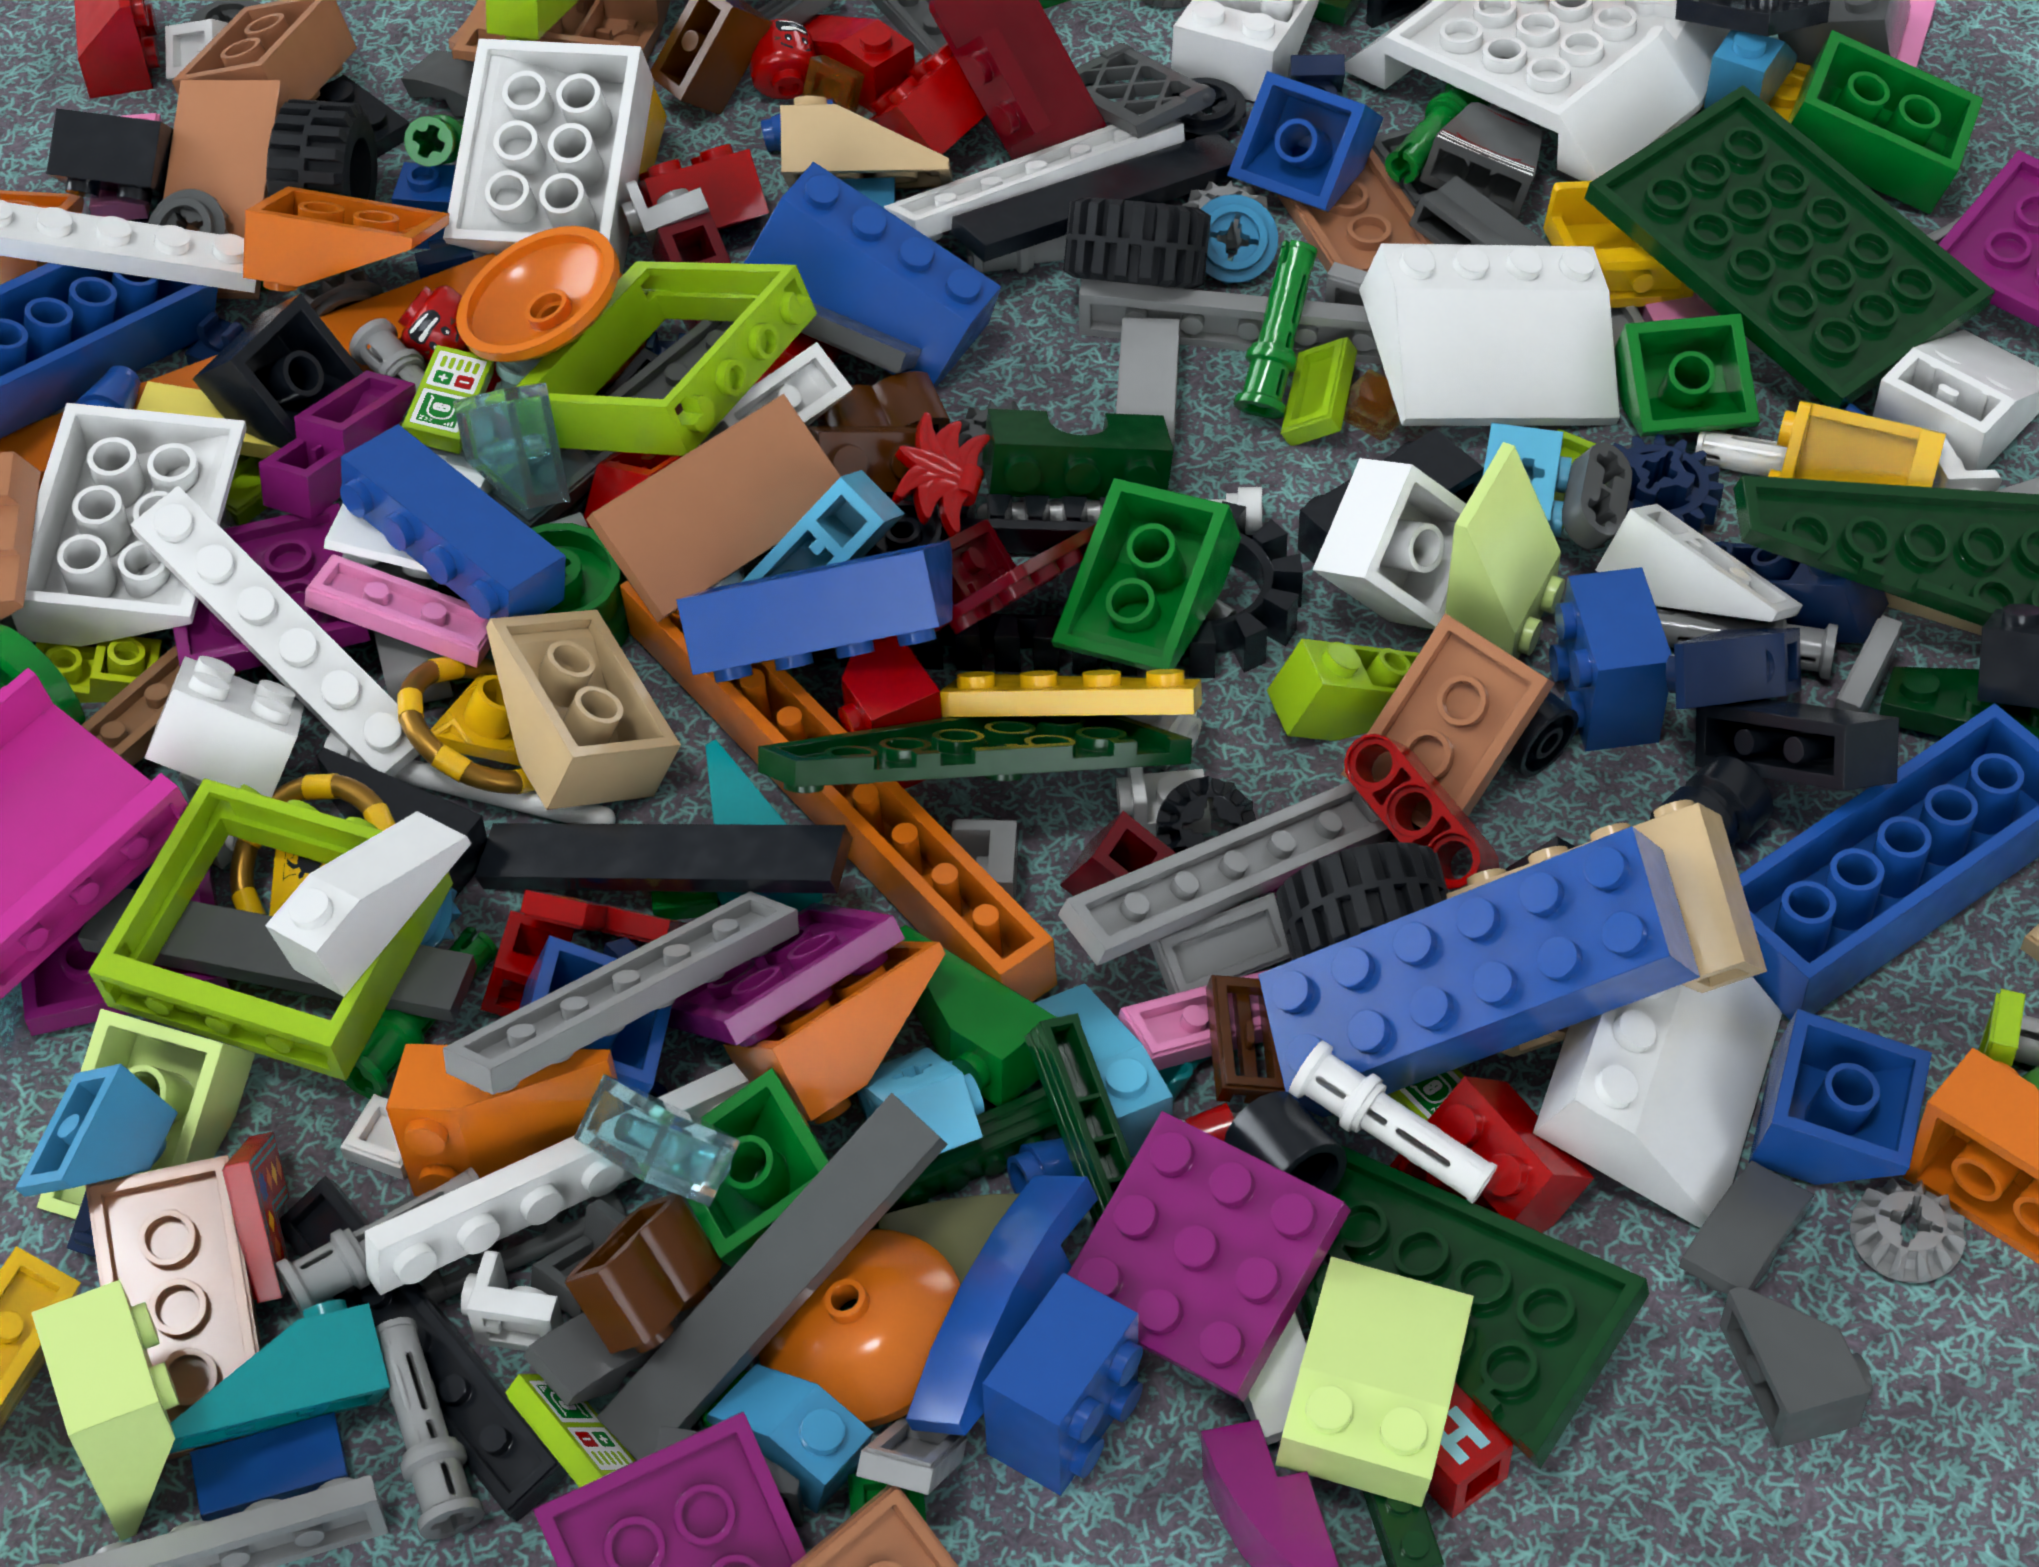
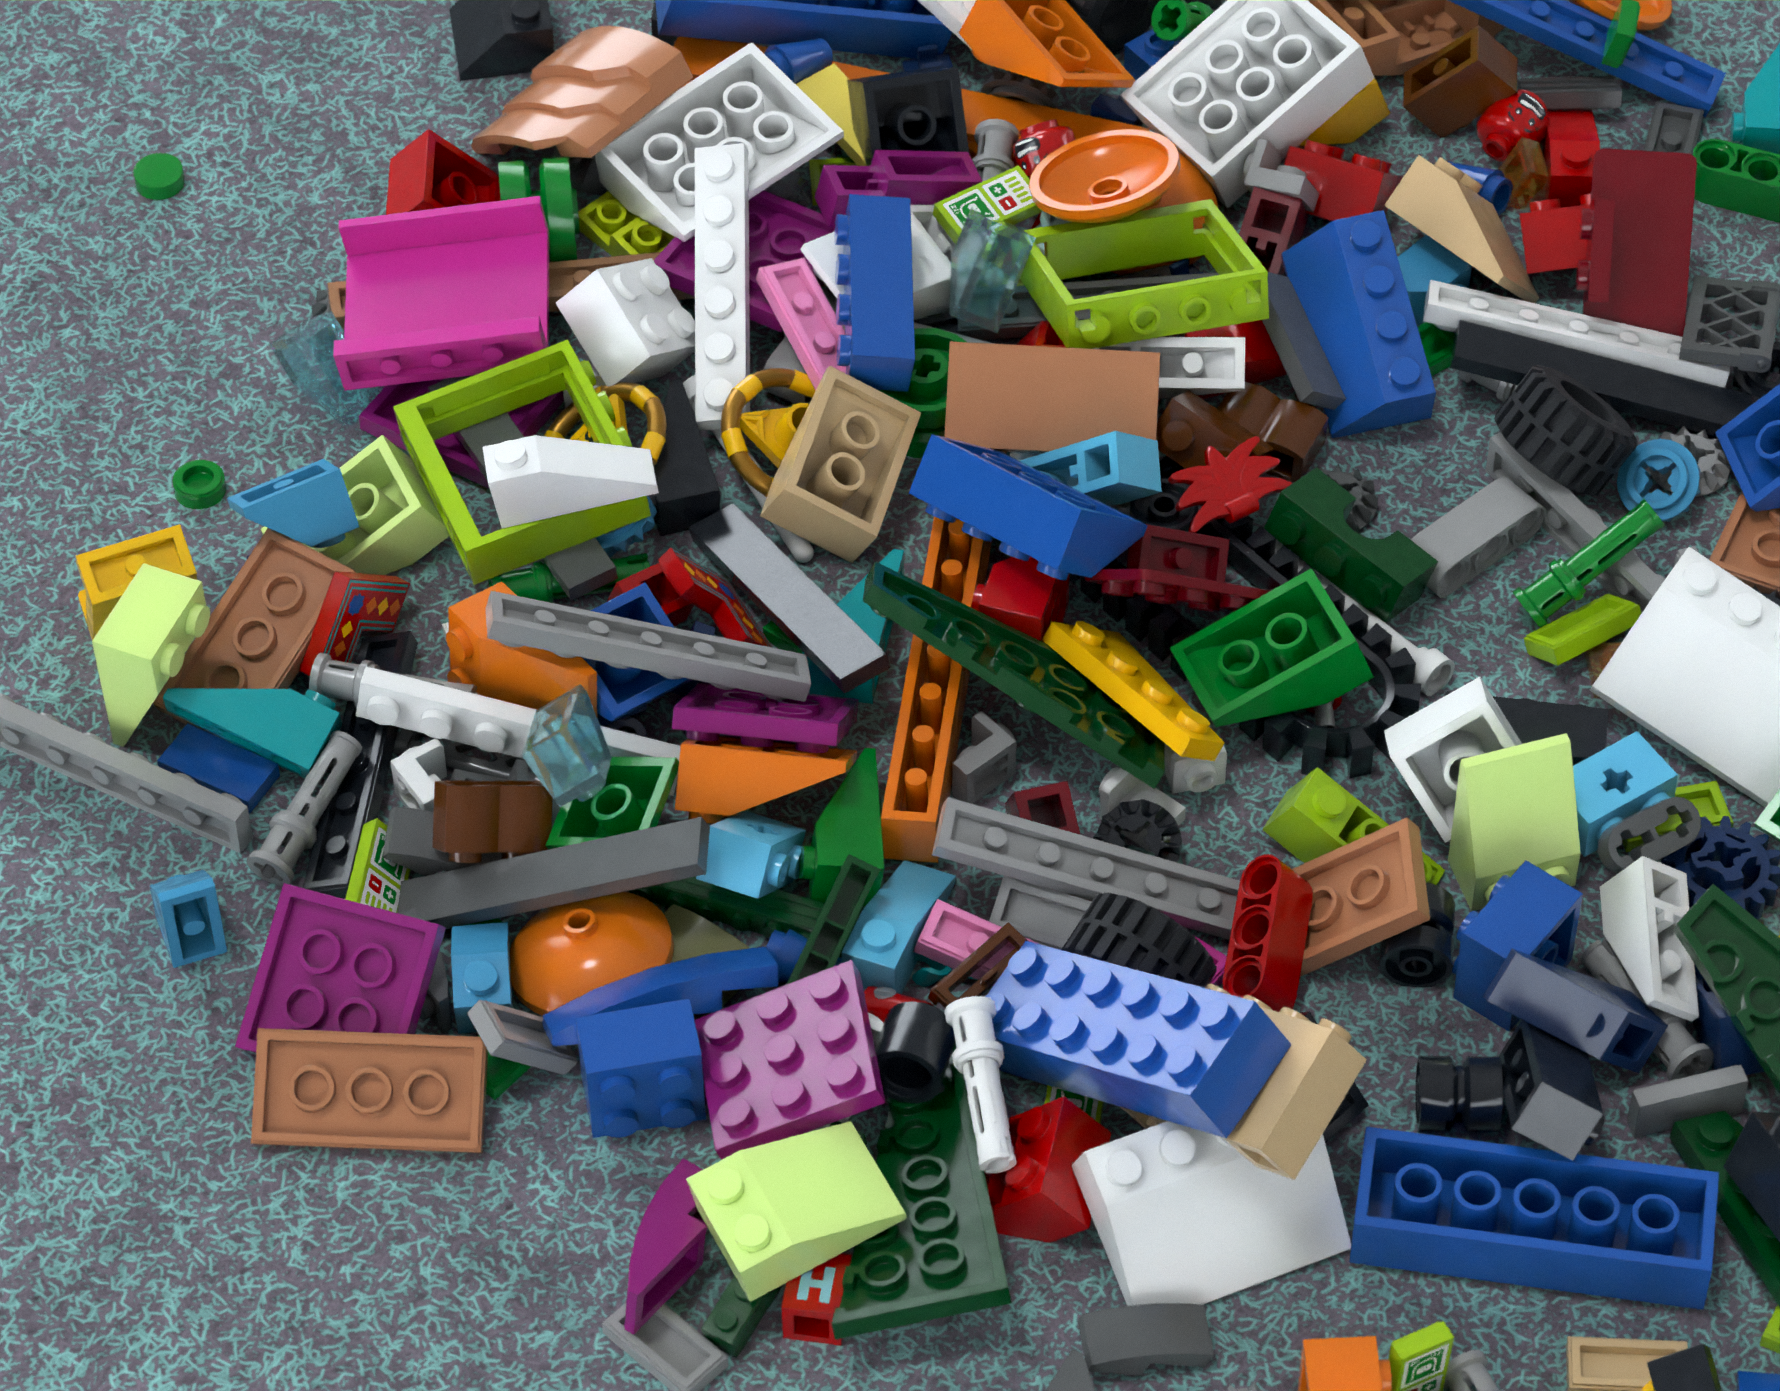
camera: 45 degrees right, 0 degrees up
(1839, 1103) = (1280, 1301): blue slope -> none

